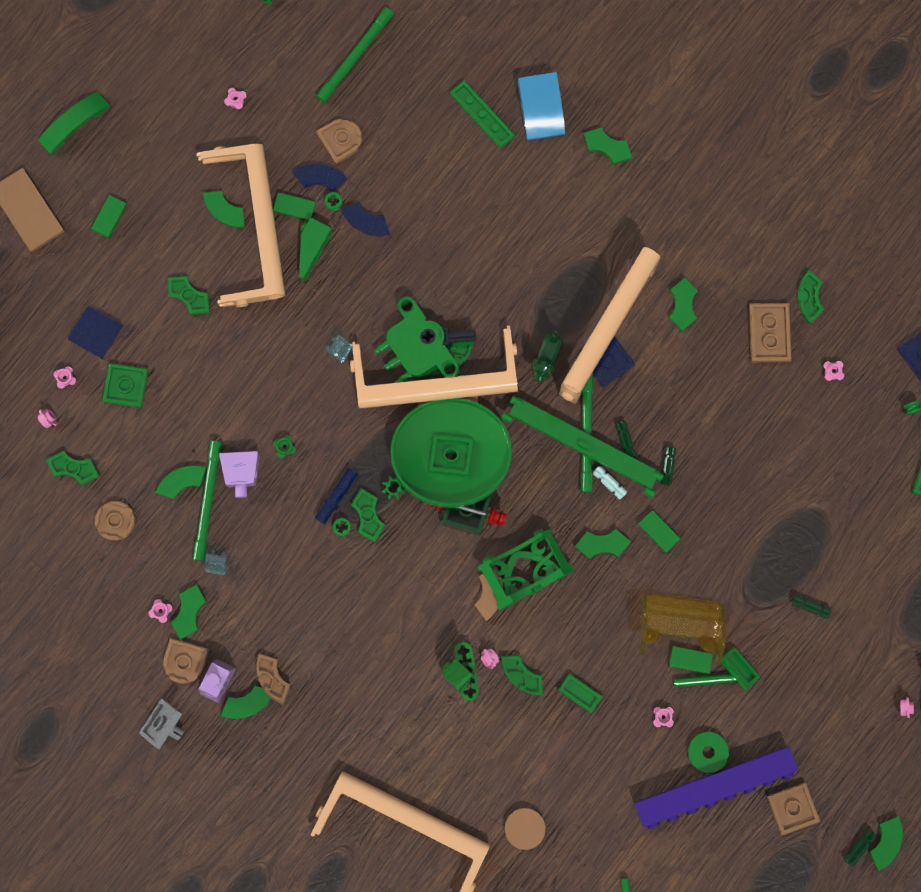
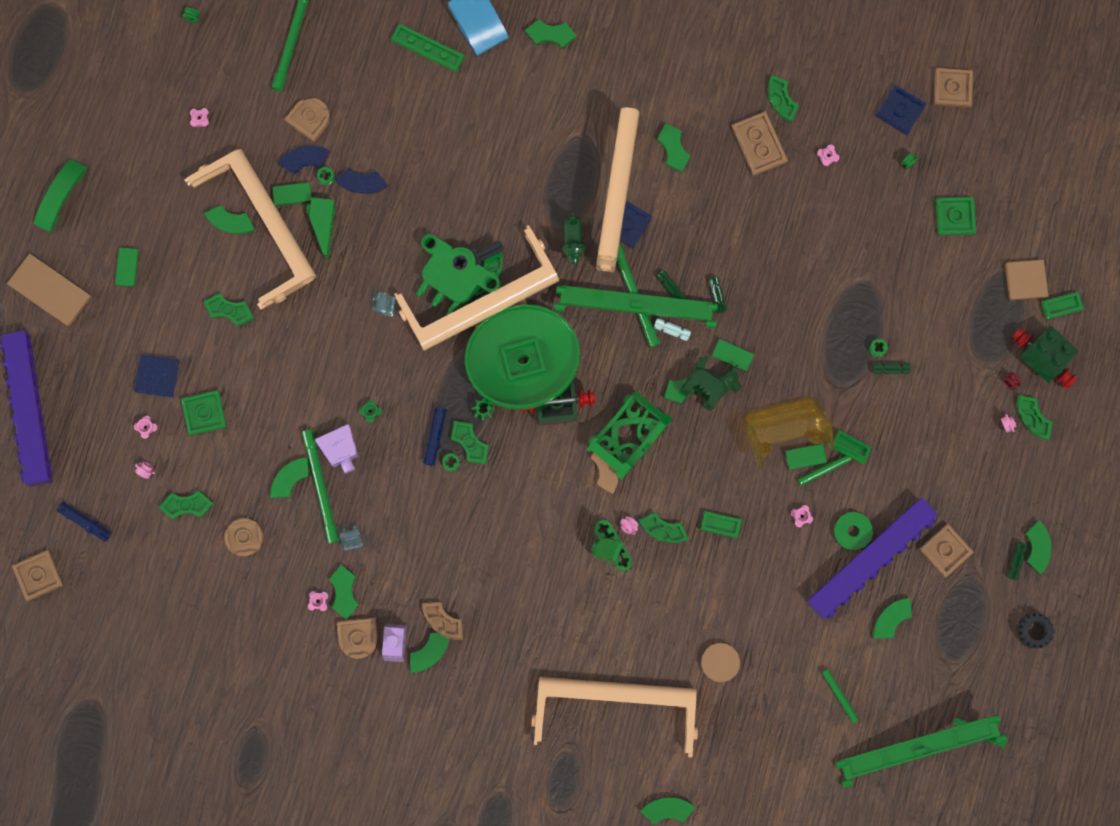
camera: 25 degrees left, 0 degrees up
(161, 724) = (361, 700): light grey tile -> none
(623, 552) = (710, 386): none -> dark green animal
(710, 853) = (891, 617): none -> green tile
(801, 577) = (884, 347): none -> green bush

